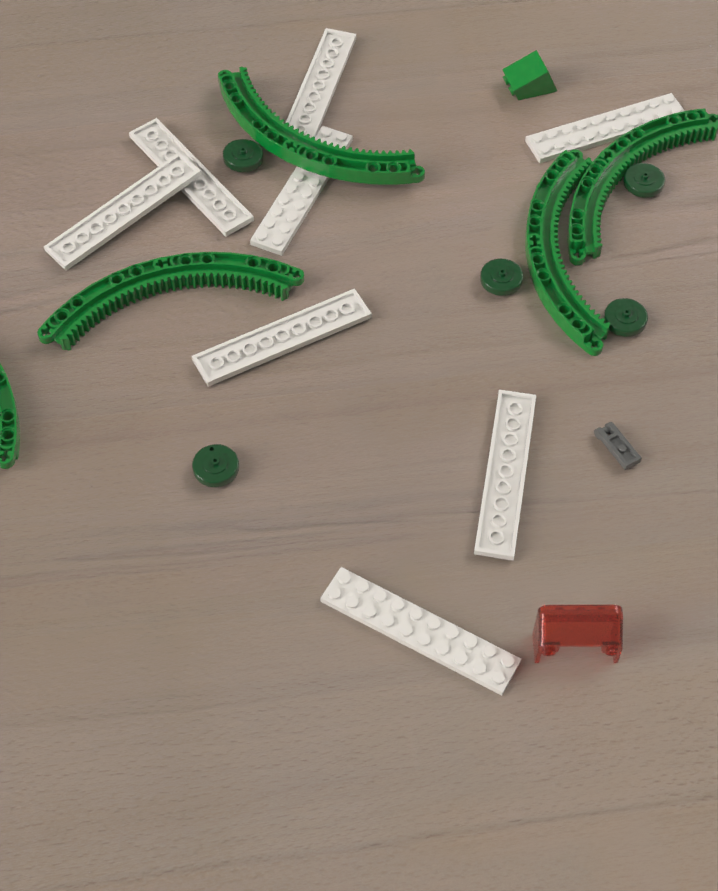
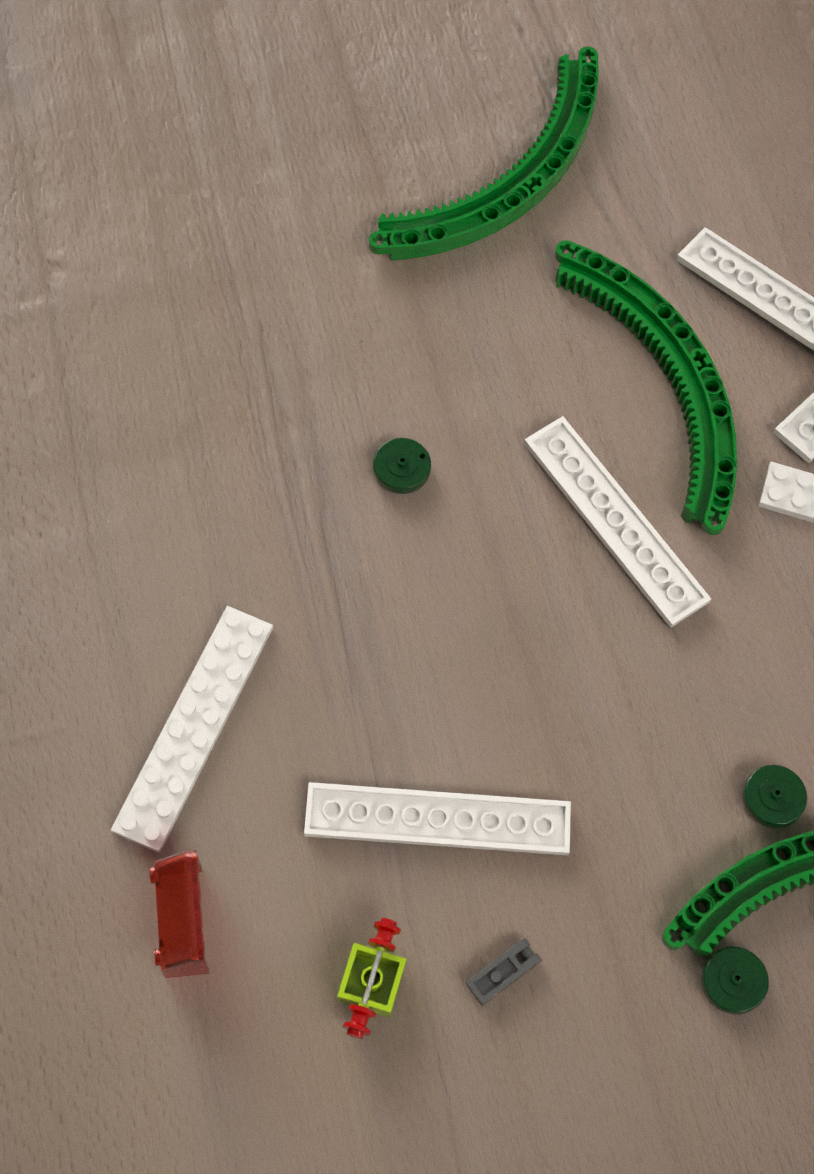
camera: 80 degrees right, 10 degrees up
(626, 519) = (371, 979): none -> lime brick

